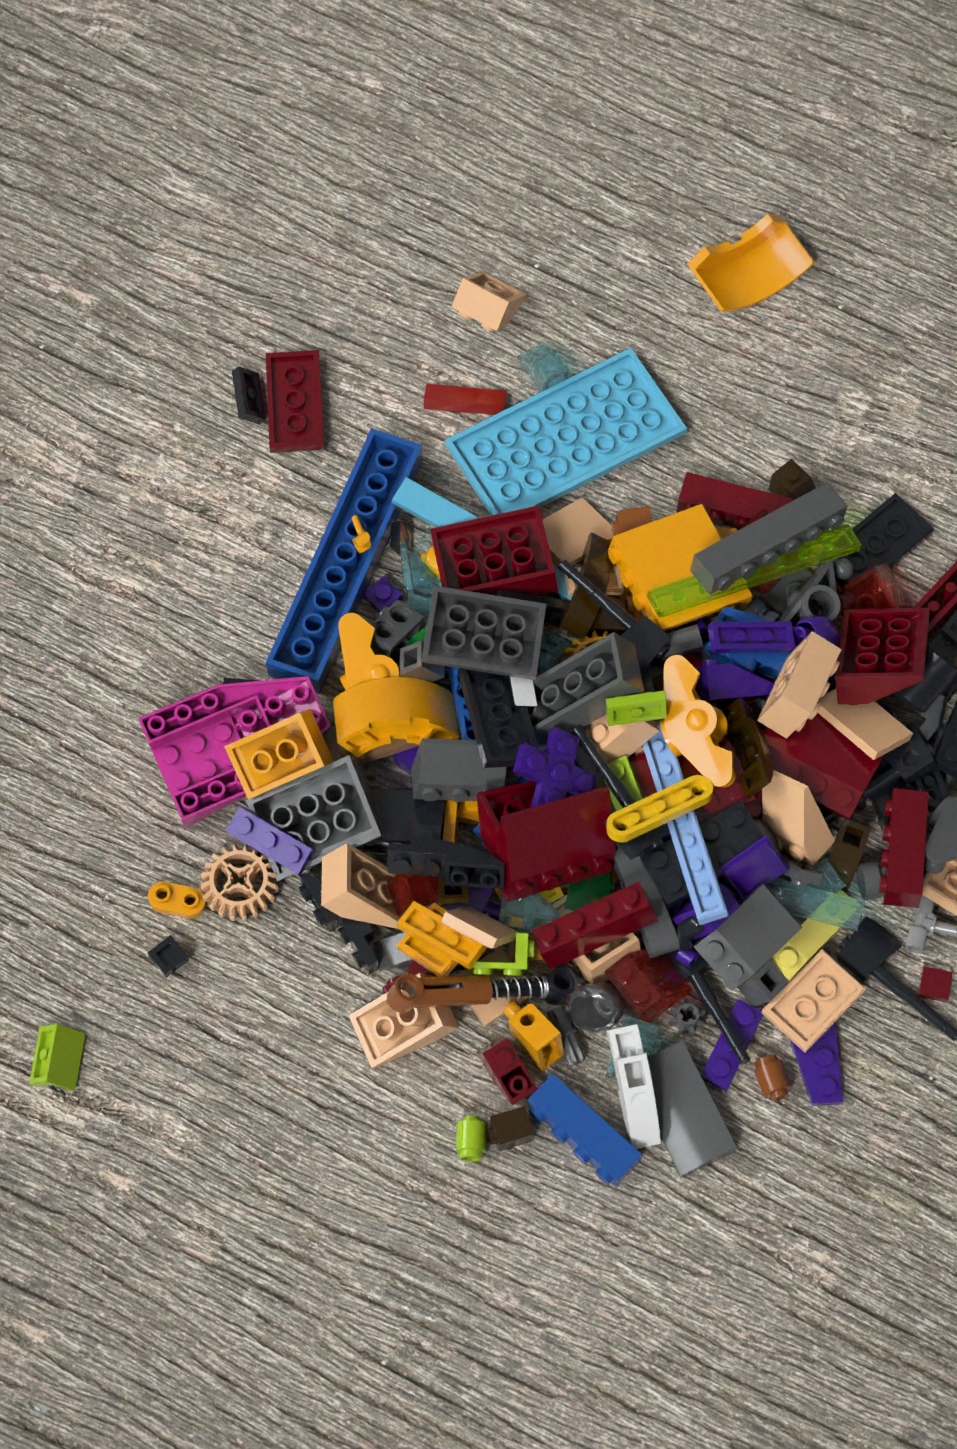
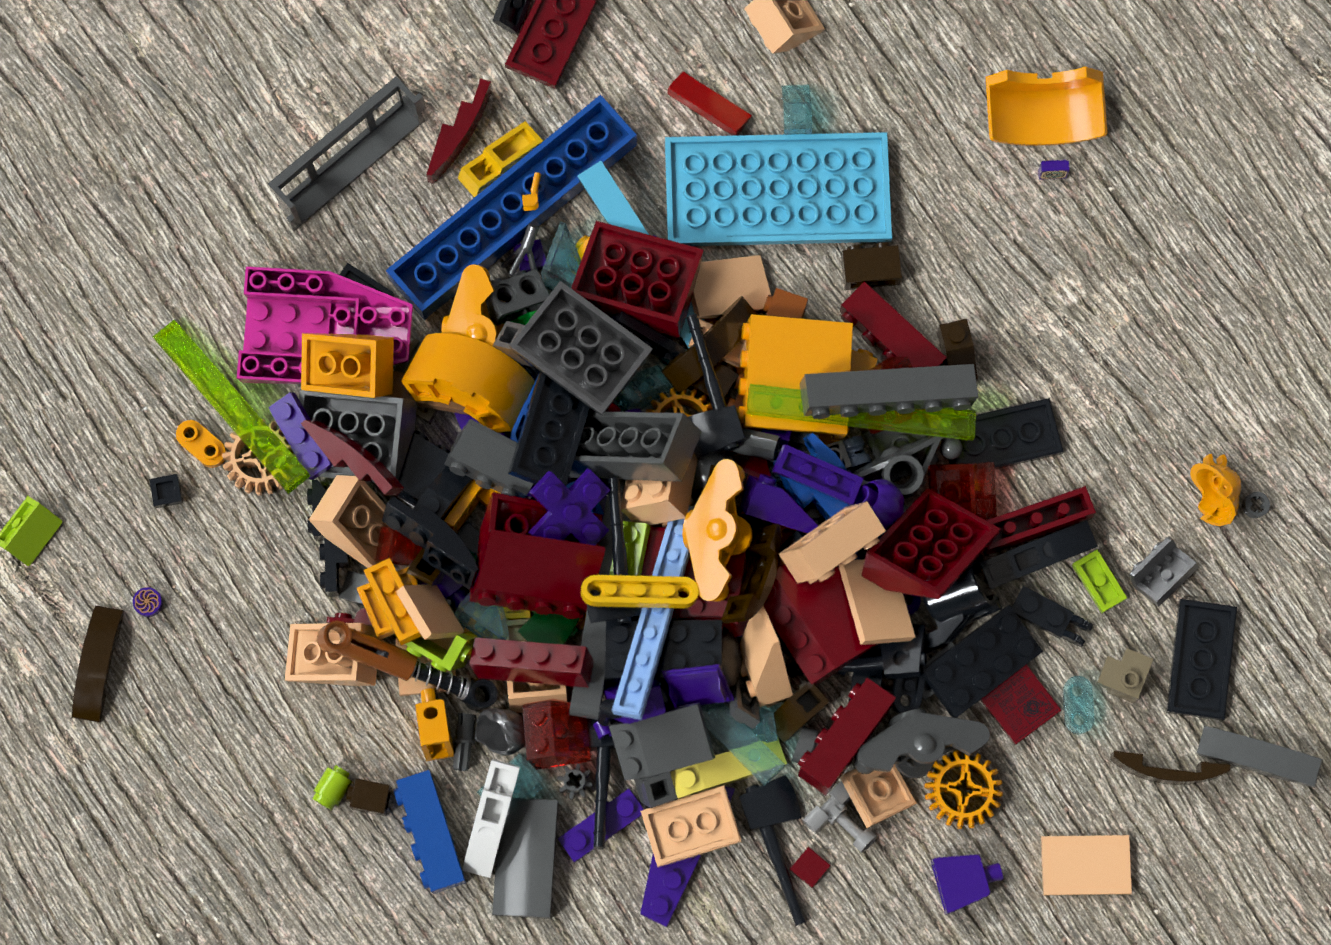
camera: 30 degrees right, 10 degrees up
(181, 585) = (354, 158): none -> dark grey piece
(188, 1145) = (95, 663): none -> dark brown slope
(190, 849) = (231, 406): none -> clear neon green tile
(205, 1064) = (147, 602): none -> tile
(260, 527) = (454, 138): none -> dark red slope
(309, 528) = (498, 158): none -> yellow slope
(322, 829) = (347, 453): none -> dark red slope
(378, 586) = (526, 247): none -> flat silver plant
(399, 534) = (573, 212): black tile -> none
(507, 1070) = (394, 745): dark red slope -> none
(523, 691) = (586, 421): white sticker -> none
(636, 708) = (667, 491): lime plate -> none
(687, 454) = (874, 265): none -> dark brown brick
(772, 1078) = (617, 873): dark orange brick -> none
(786, 311) = (1053, 169): none -> dark purple tile

